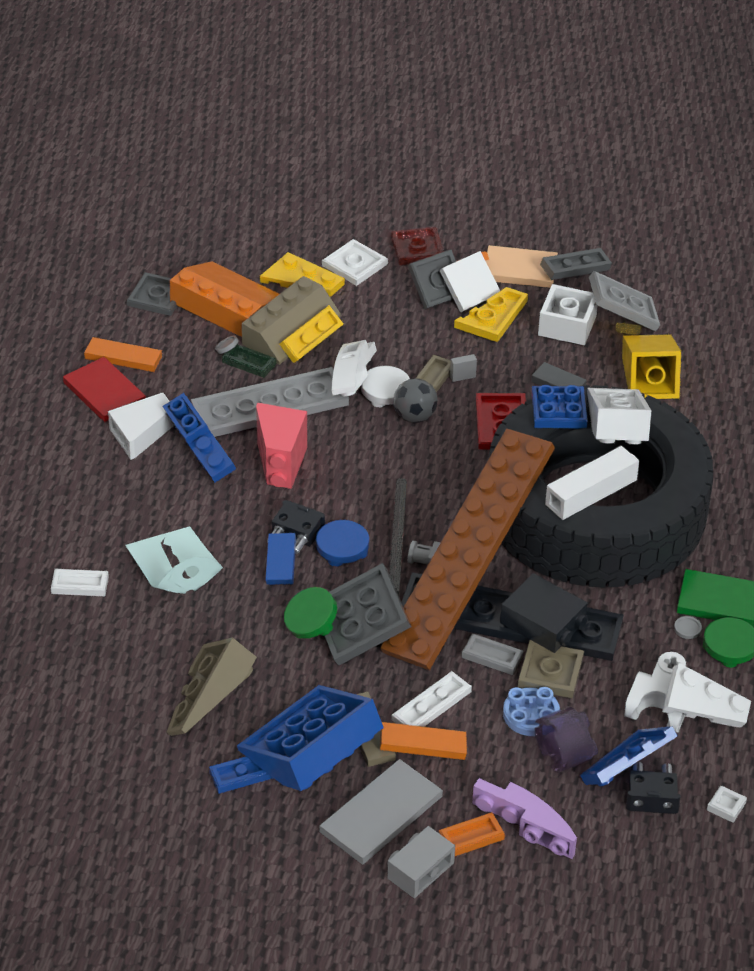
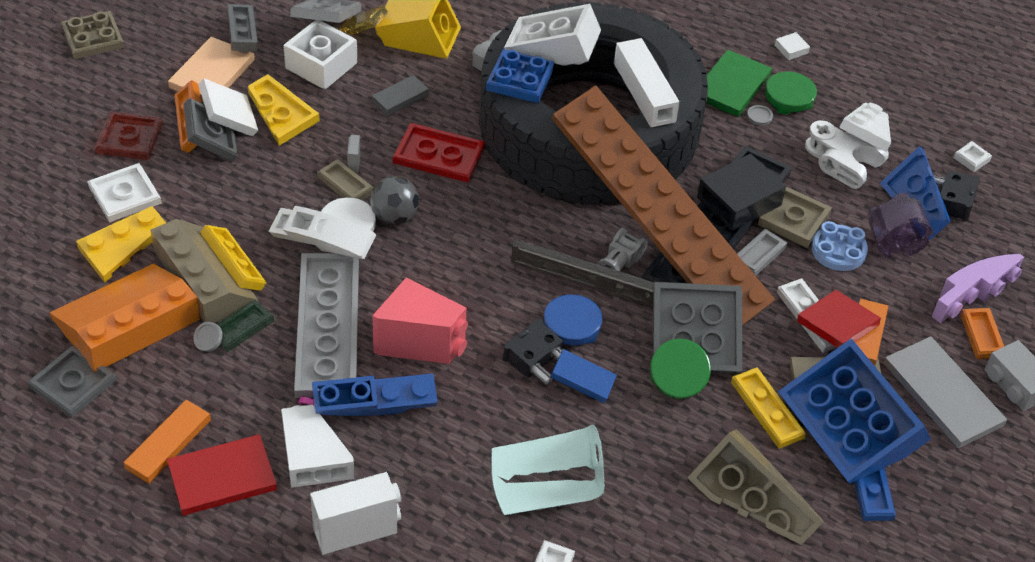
camera: 75 degrees left, 5 degrees up
(82, 453) = (355, 512): none -> white brick
(323, 673) = (768, 408): none -> yellow tile
(420, 711) = (838, 319): none -> red tile
(521, 192) = (92, 34): none -> dark tan tile

